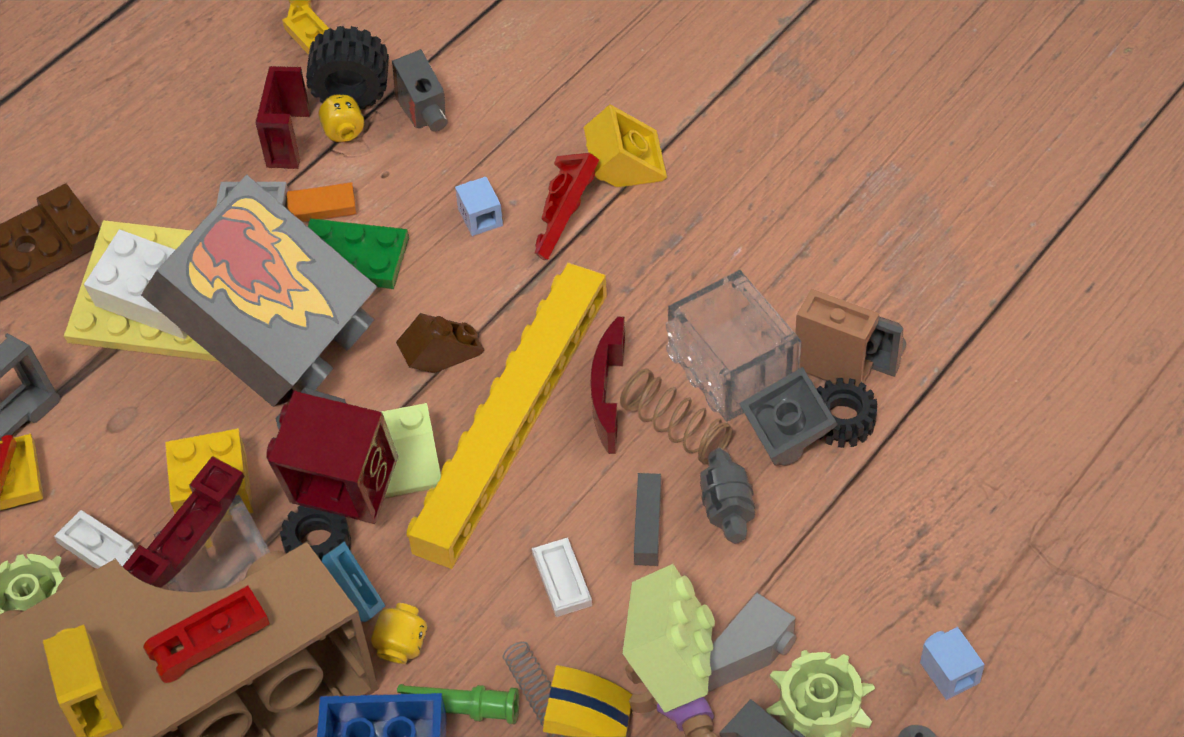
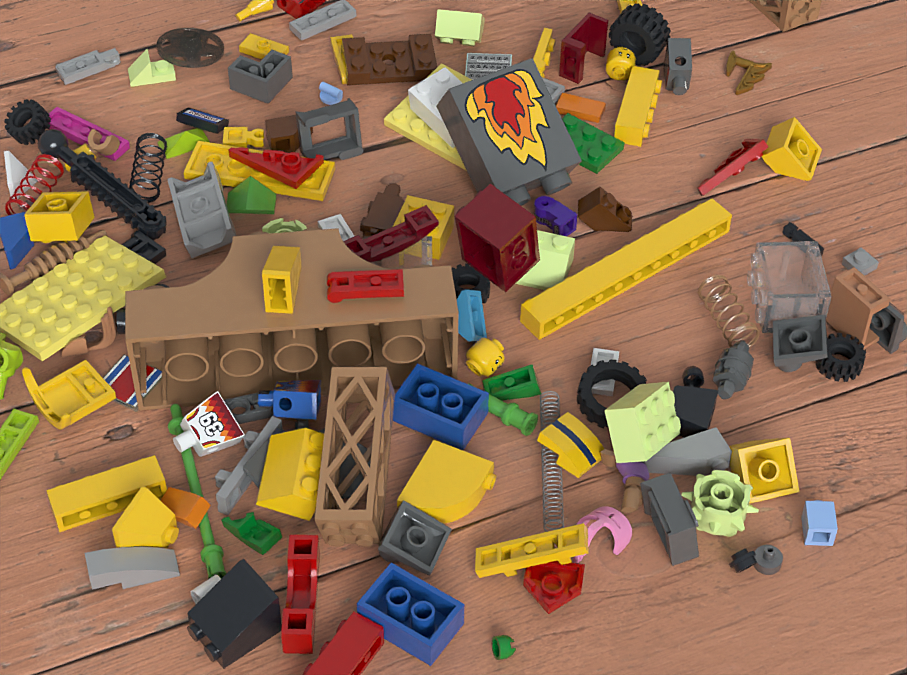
camera: 25 degrees right, 5 degrees down
(96, 155) = (459, 27): none -> yellowish green slope
(144, 488) = (382, 211): none -> reddish brown hinge
(171, 200) = (483, 64): none -> light grey tile
(233, 150) = (545, 46): none -> yellow plate
(376, 377) = (555, 216): none -> dark purple leg
(396, 171) = (637, 106): none -> yellow brick
(455, 655) = (513, 384): none -> green slope
(479, 206) = (677, 146): light blue brick -> none
(514, 61) = (754, 72): none -> pearl gold piece
(563, 629) = (604, 371): none -> black tyre
(608, 353) = (708, 260): dark red slope -> none
(647, 519) = (677, 360): dark grey piece -> none
(681, 529) = (696, 378): none -> black hinge
(701, 266) = (791, 231): none -> black axle
(714, 578) = (694, 408): none -> black torso
(790, 268) = (861, 261): none -> light grey plate
(843, 617) = (766, 467): none -> yellow slope

